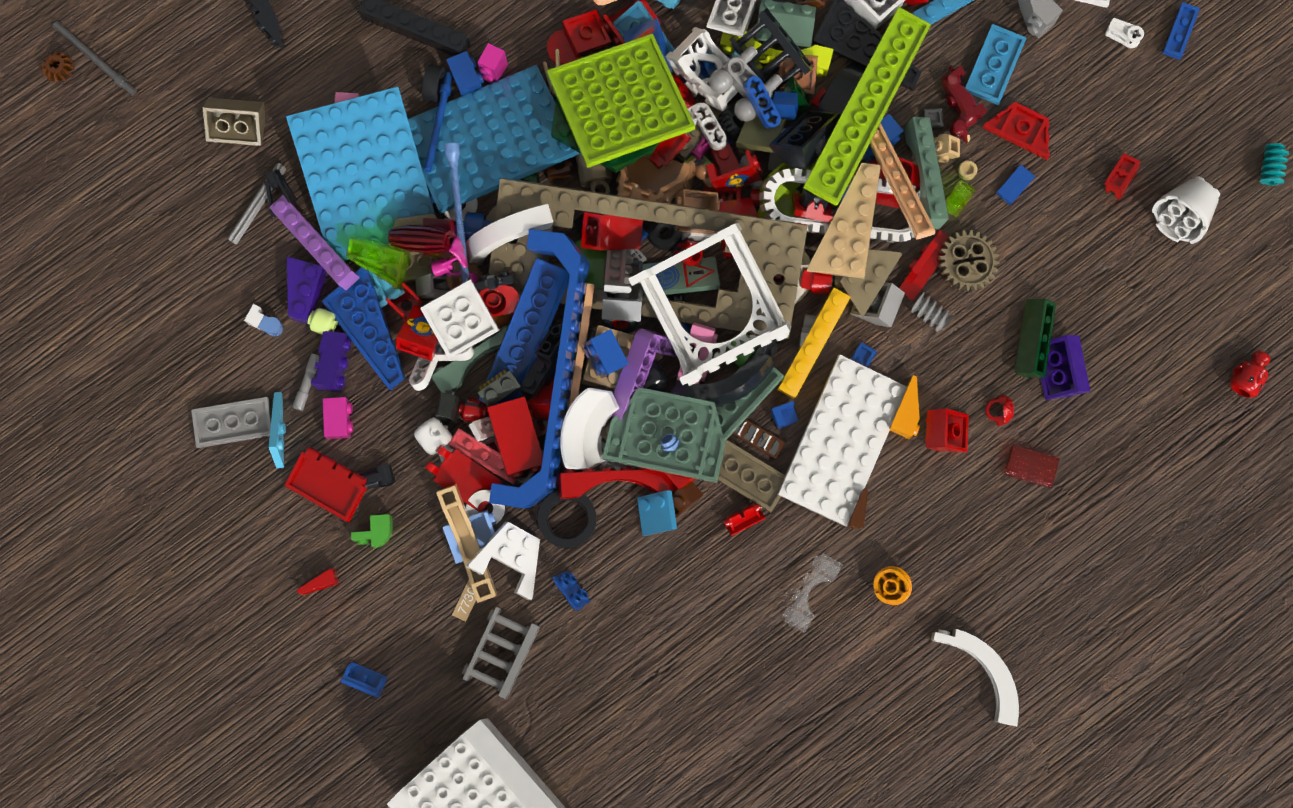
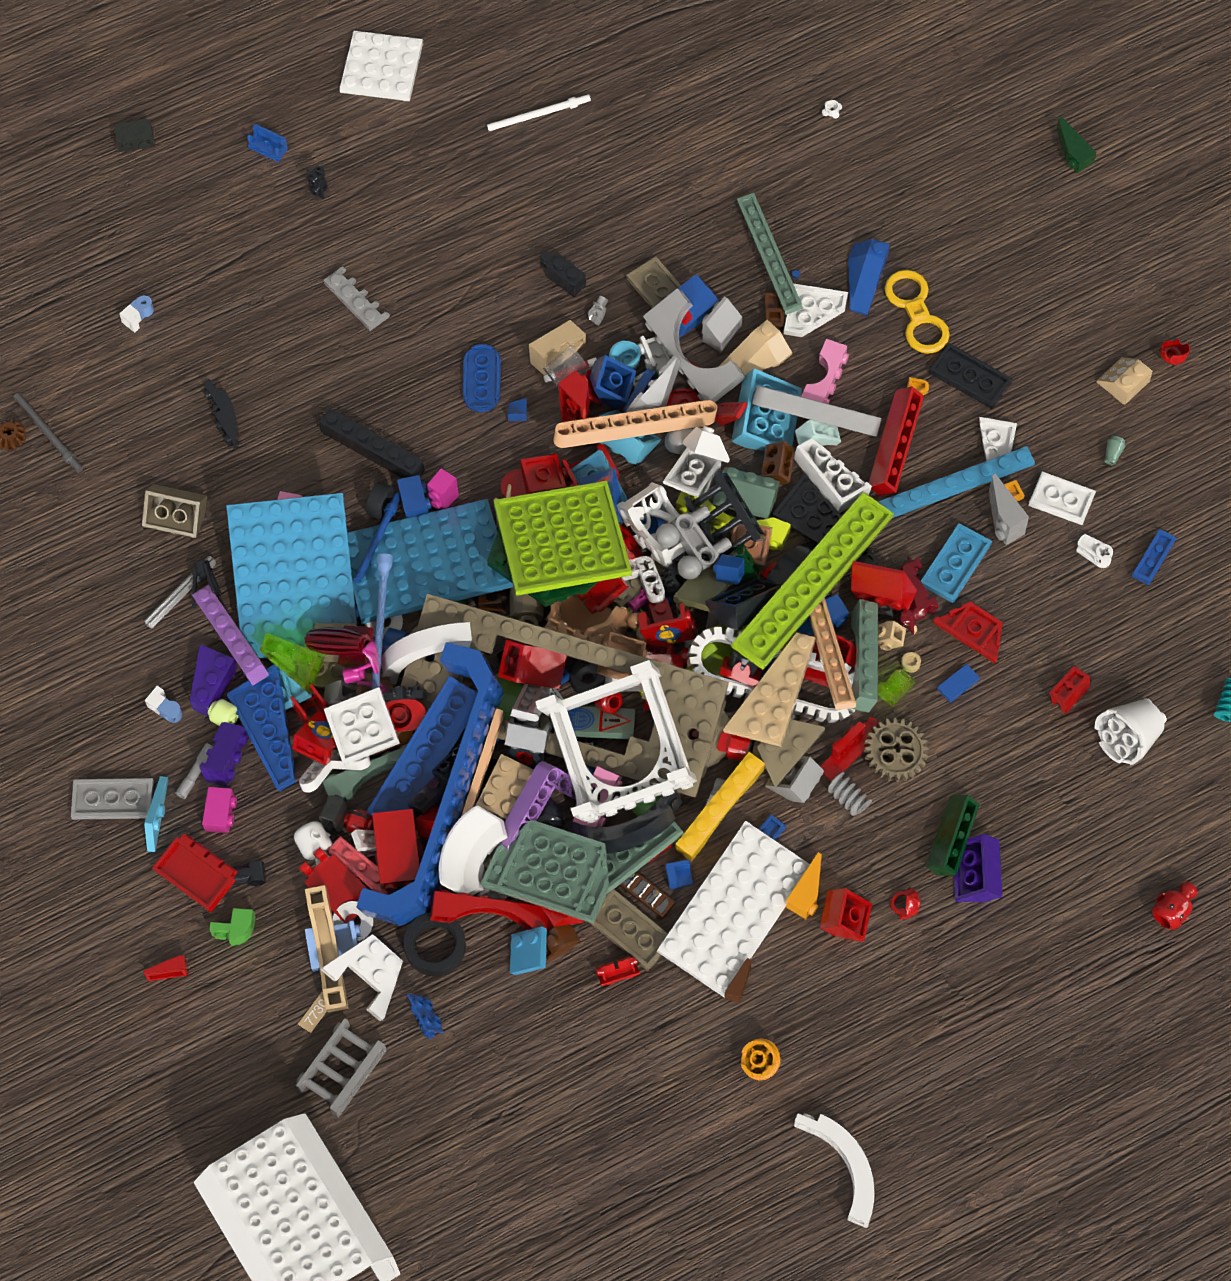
camera: 10 degrees right, 15 degrees down
(364, 679) = (194, 1073): blue hinge -> none
(498, 387) = (388, 799): pearl dark grey brick -> none
(605, 354) = (501, 779): blue brick -> none
(669, 442) = (551, 874): medium blue plate -> none
(769, 103) = (715, 573): blue beam -> none
(824, 570) = (693, 1037): clear arch -> none
(932, 100) = (882, 585): none -> red slope
(1031, 466) = (929, 964): clear red piece -> none

